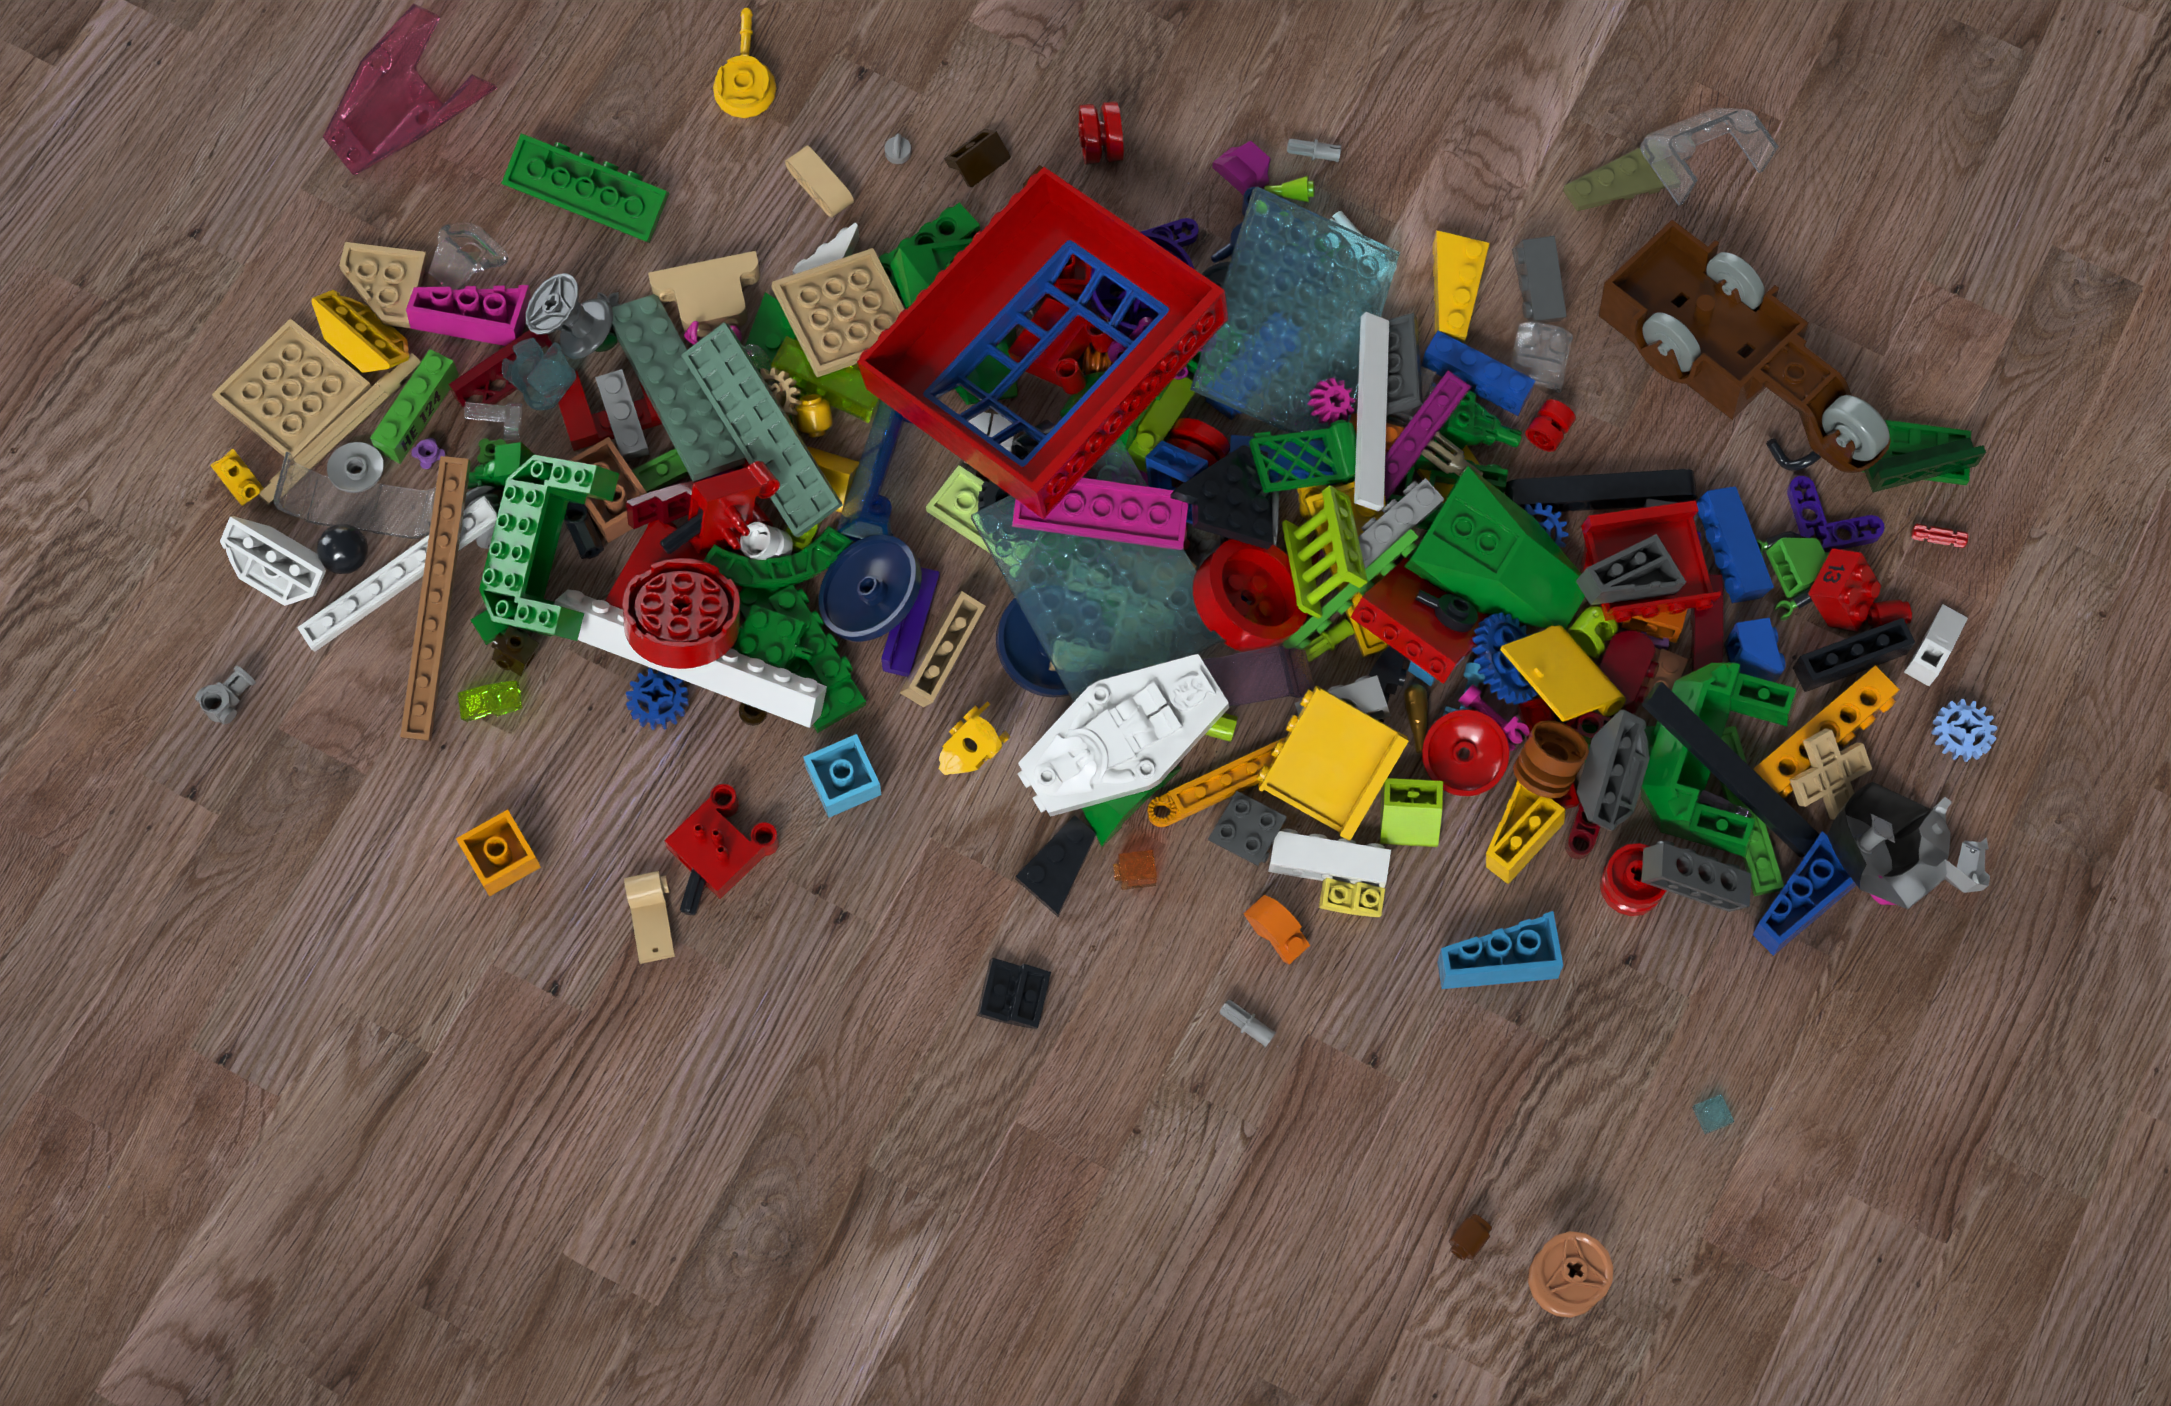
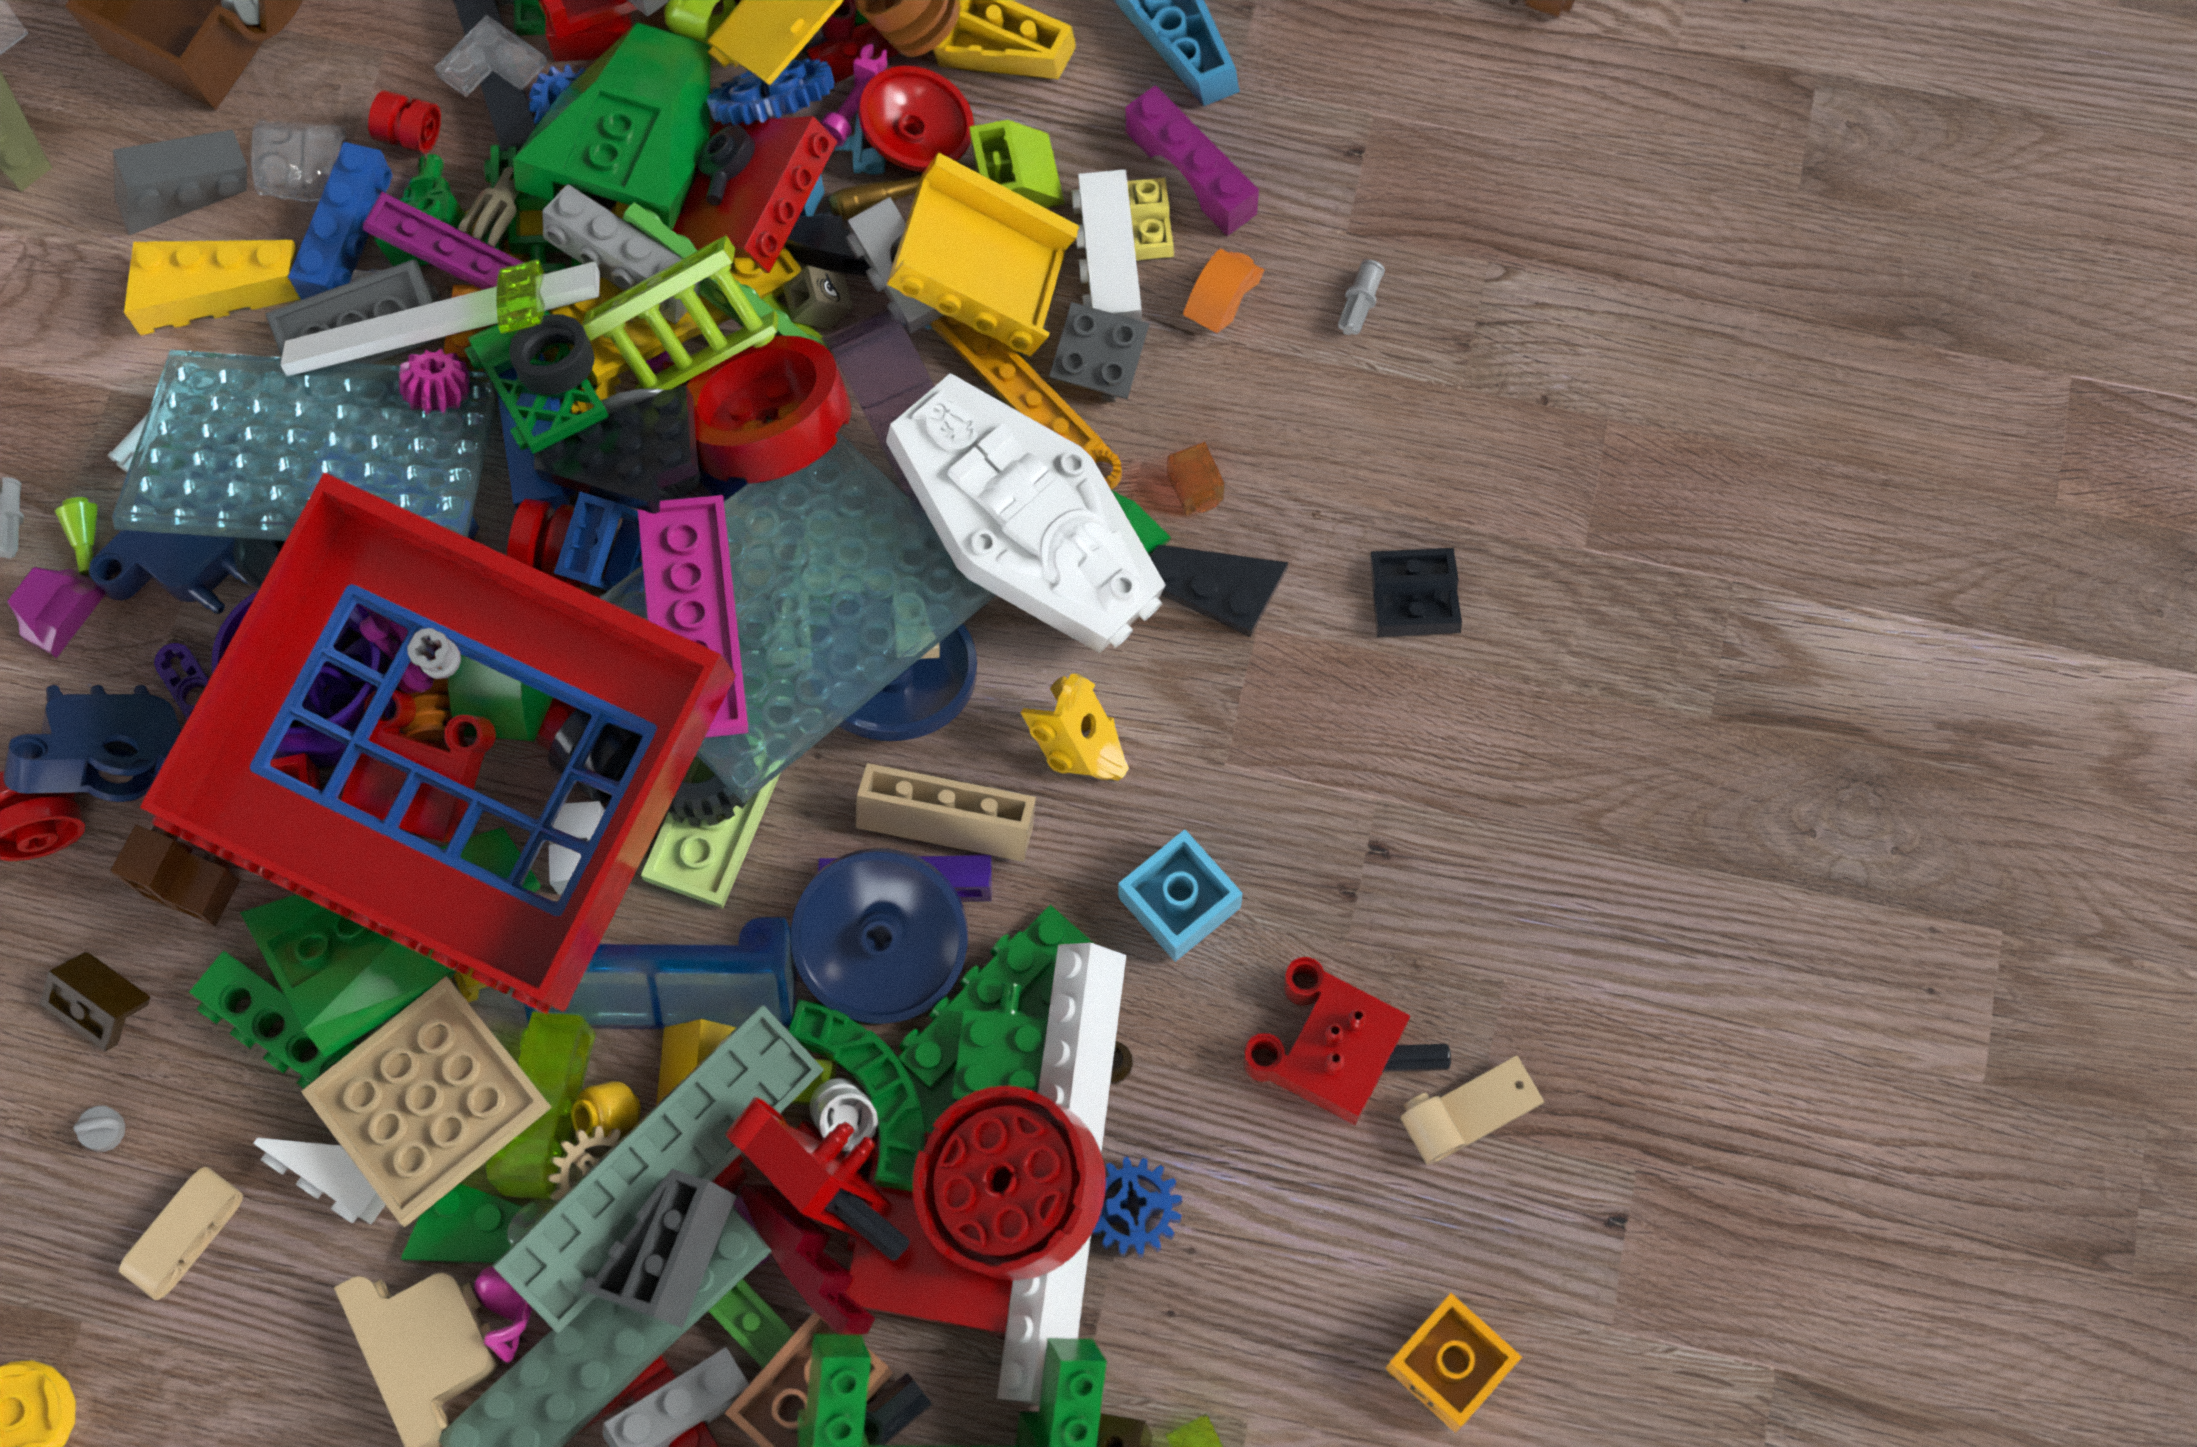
camera: 100 degrees left, 0 degrees up
(703, 416) = (666, 1250): none -> dark grey wedge
(1081, 330) = (421, 650): none -> light grey bush
(1137, 170) = (94, 735): none -> dark blue piece
(1328, 451) = (560, 375): none -> black tyre
(1339, 658) = (818, 297): none -> dark tan brick
(1363, 451) = (519, 296): none -> clear neon green slope
(1373, 939) = (1218, 184): none -> magenta arch
(1588, 486) = (488, 49): none -> clear plate

